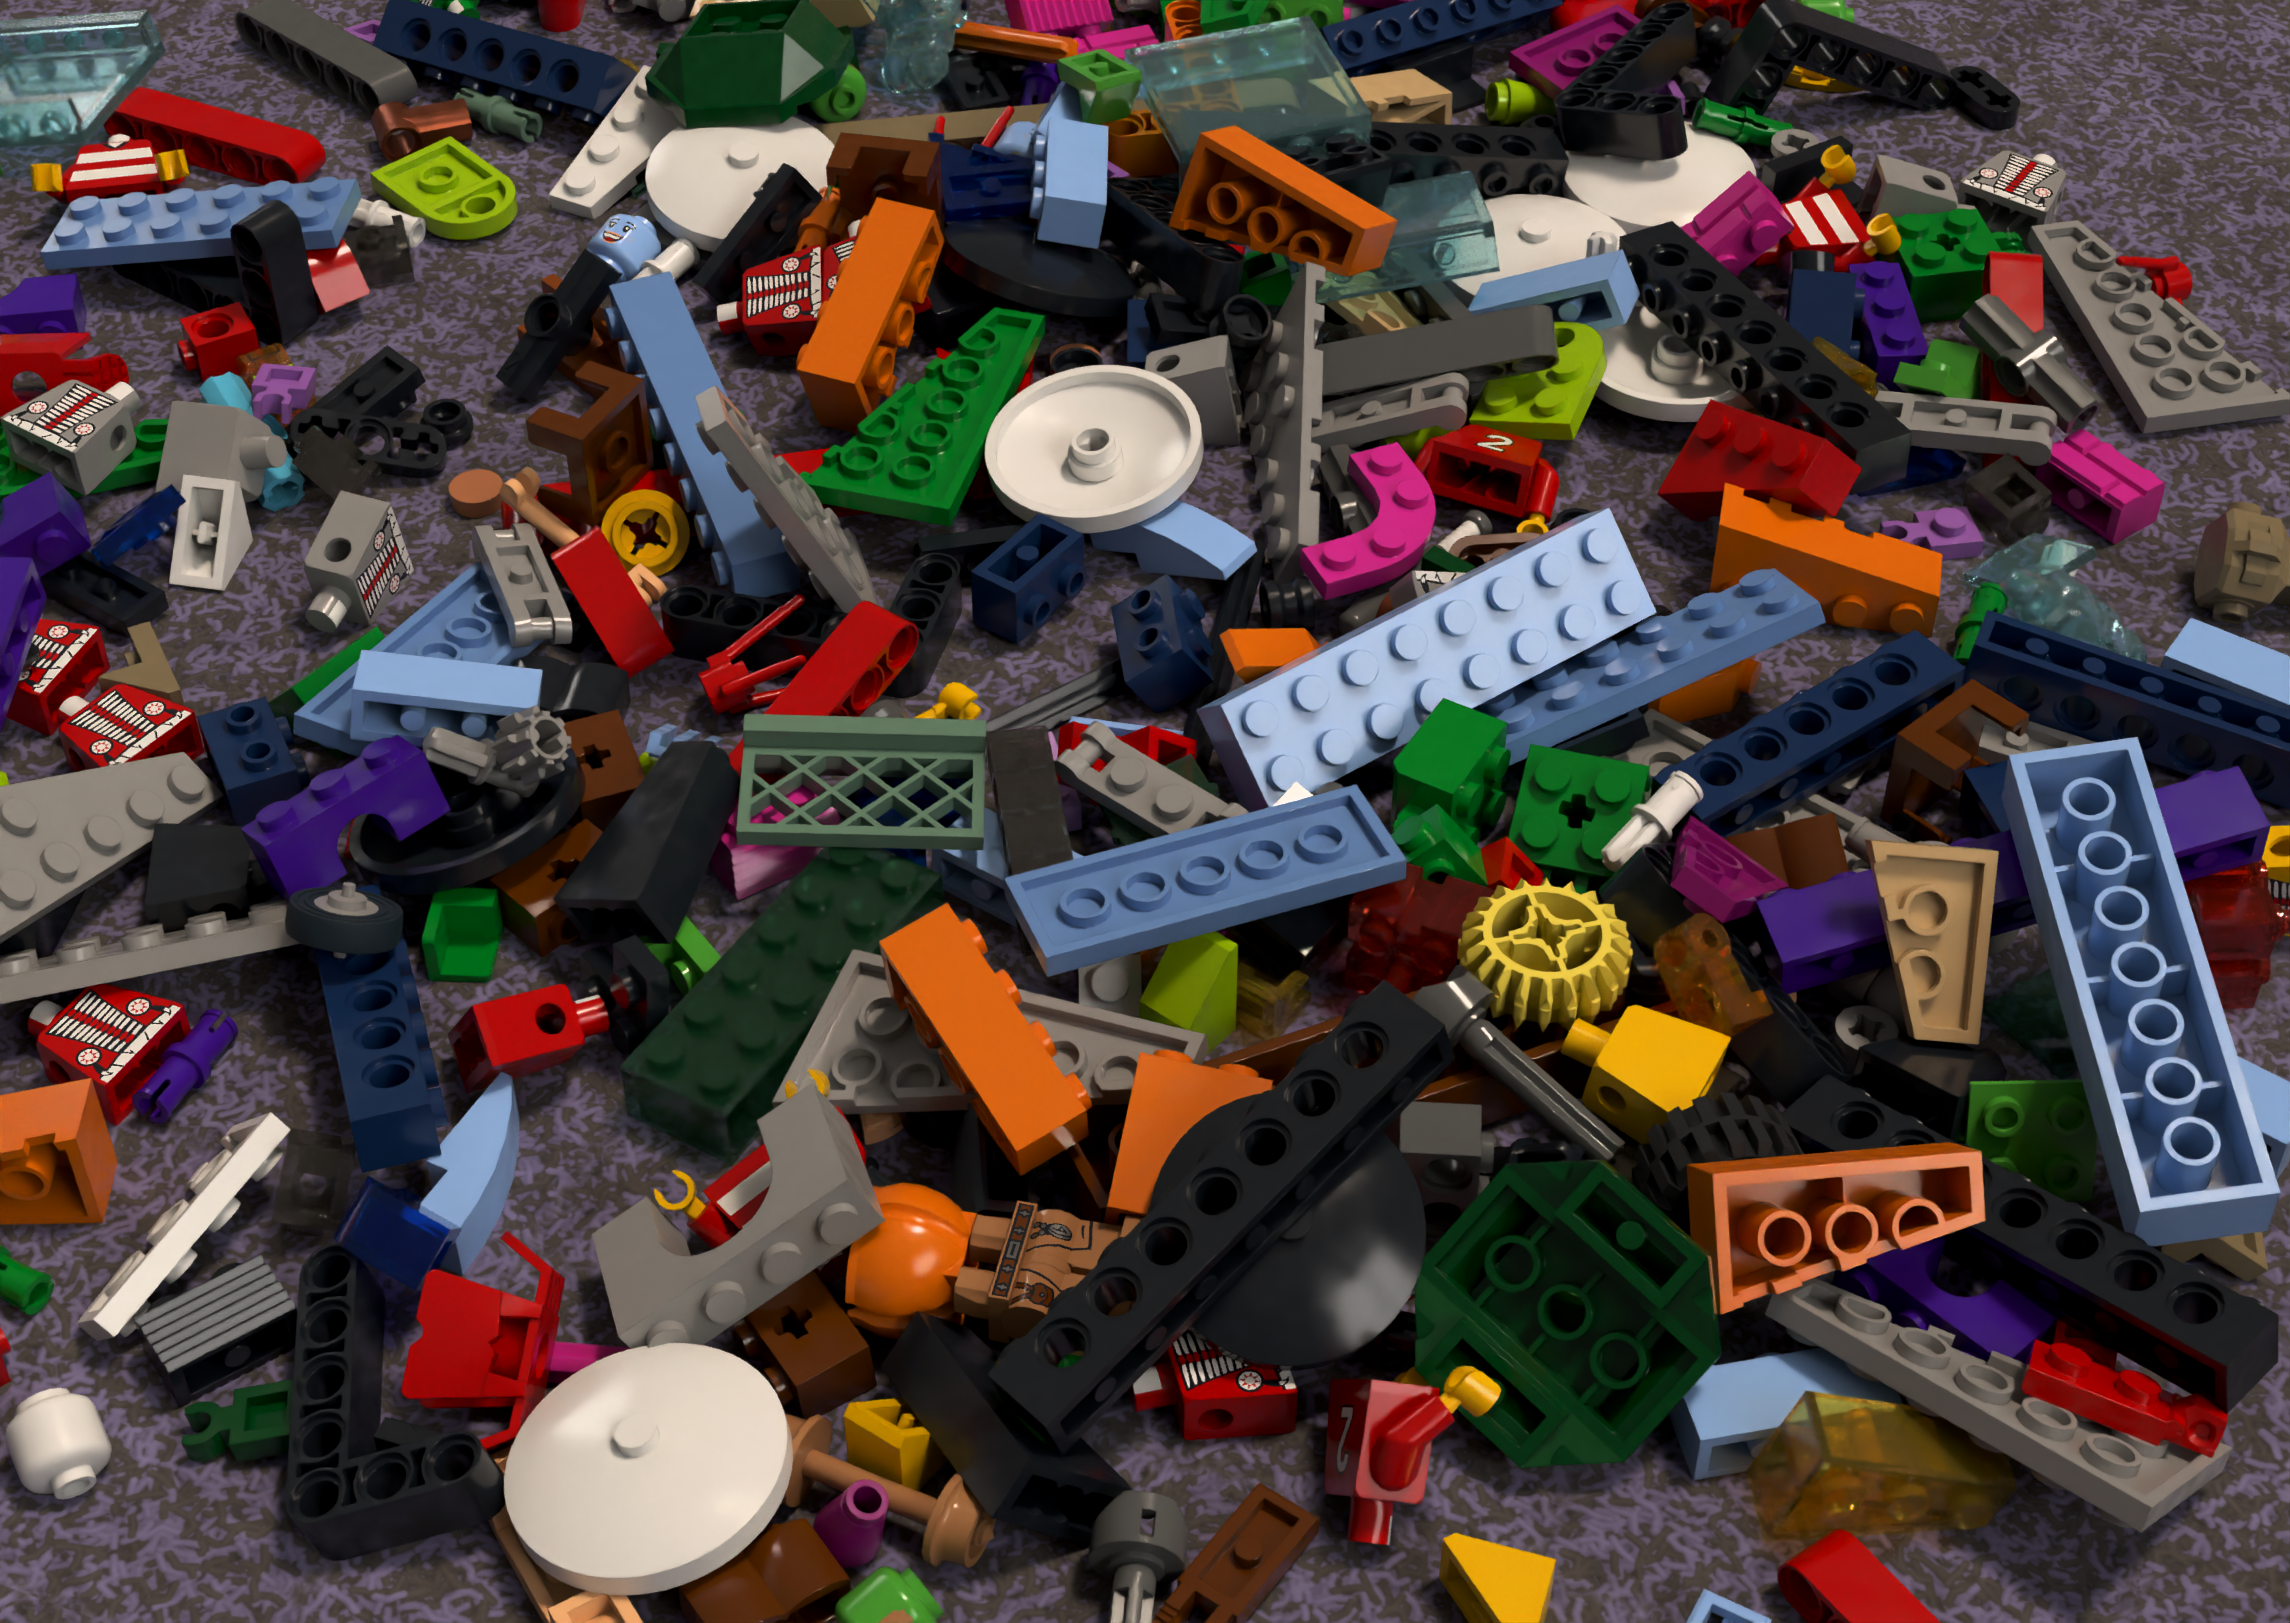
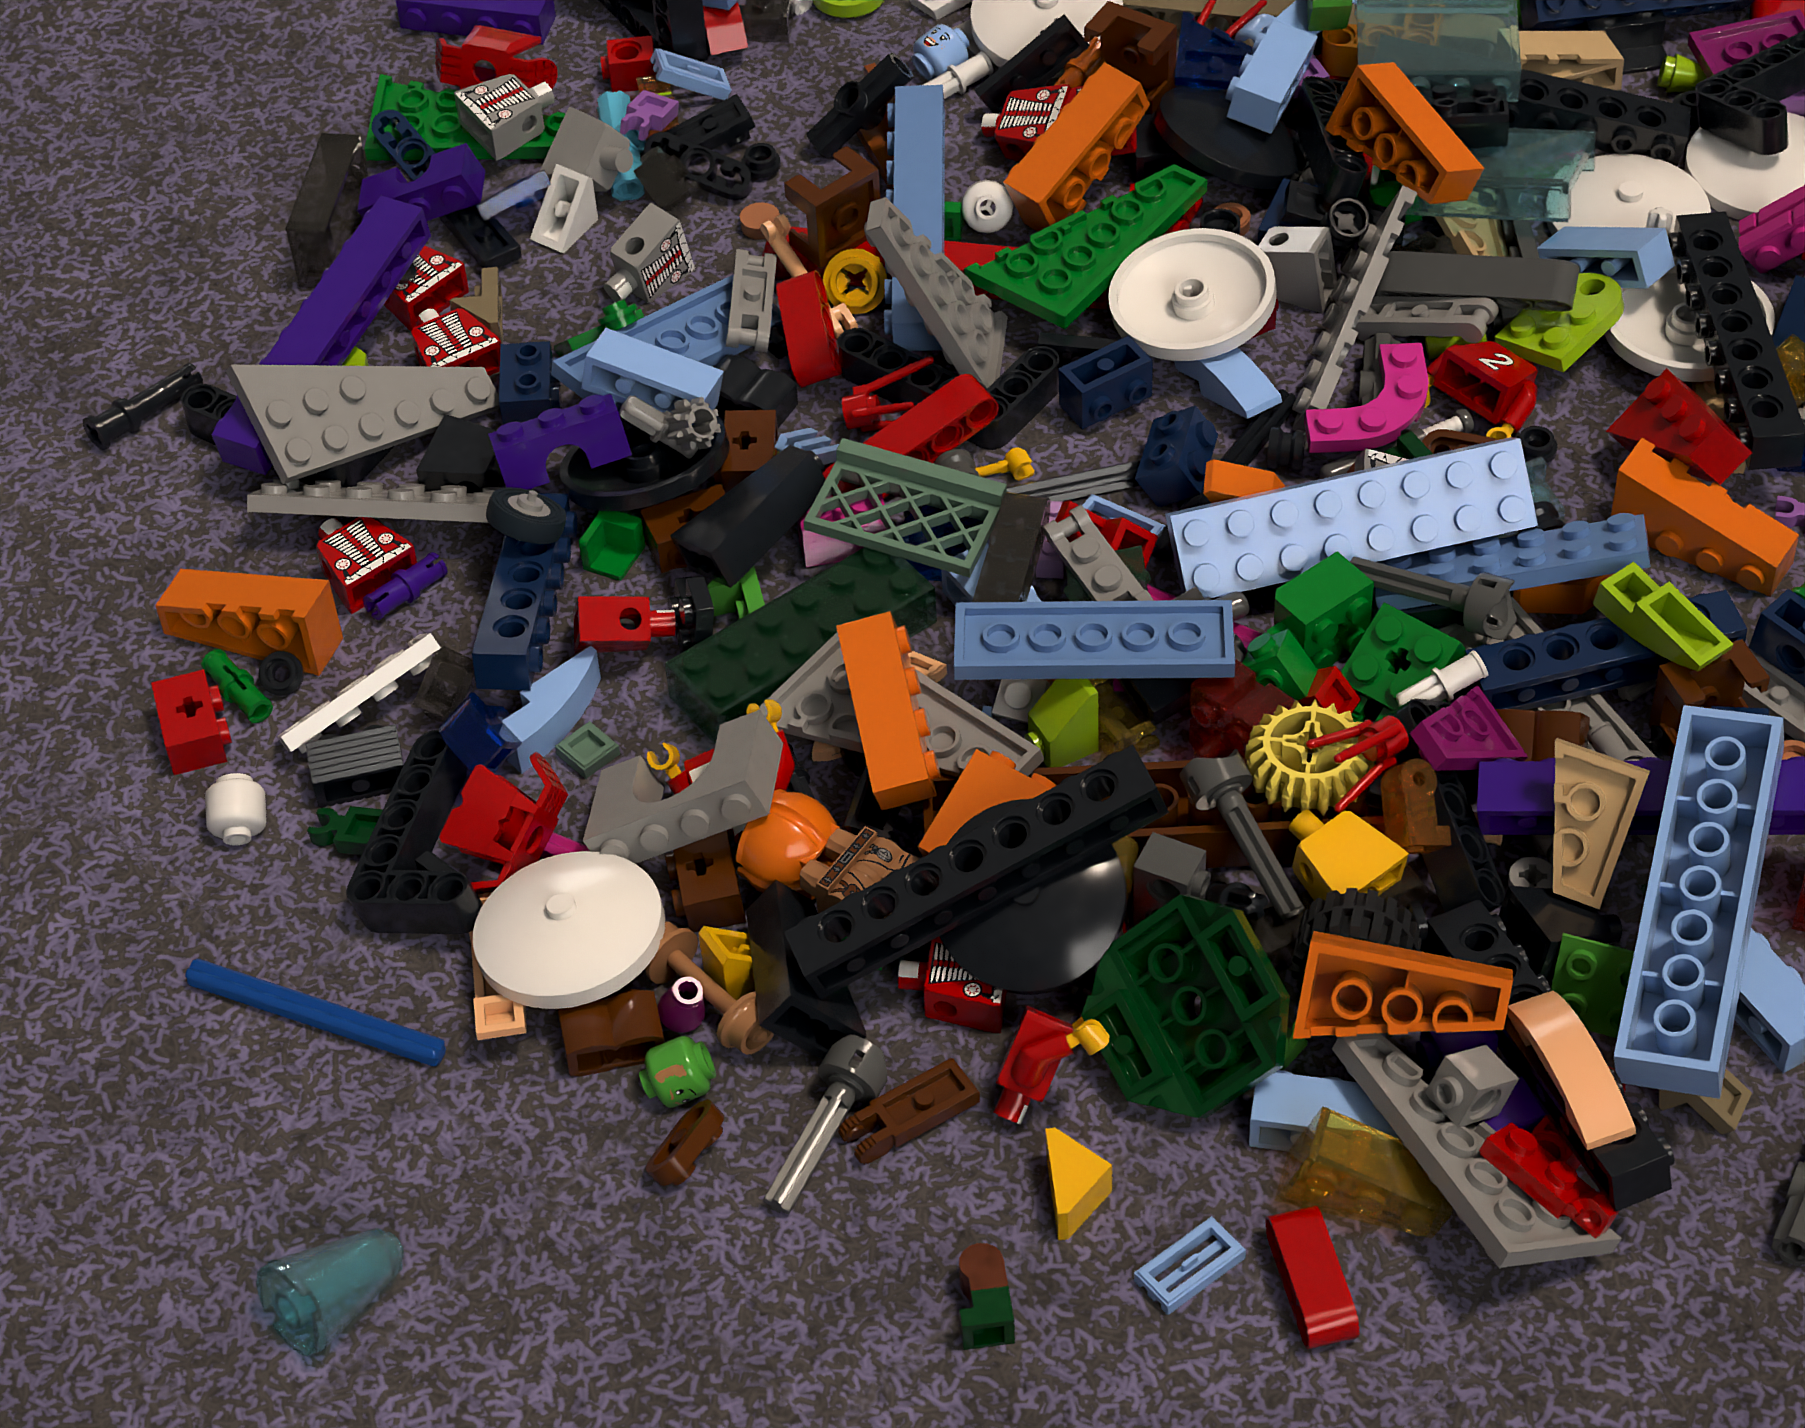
camera: 25 degrees right, 5 degrees up
(39, 1214) = (269, 667): none -> black plate
(309, 338) = (690, 74): none -> light blue tile
(354, 637) = (618, 315): none -> green plate
(546, 1216) = (587, 750): none -> sand green tile
(789, 403) = (989, 191): none -> white head
(1634, 910) = (1375, 742): none -> red plant
(1650, 715) = (1483, 602): none -> dark grey piece
(1873, 678) = (1660, 618): none -> lime slope
(1967, 1307) = (1471, 1085): none -> light grey brick
(2103, 1236) = (1576, 1068): none -> light nougat slope

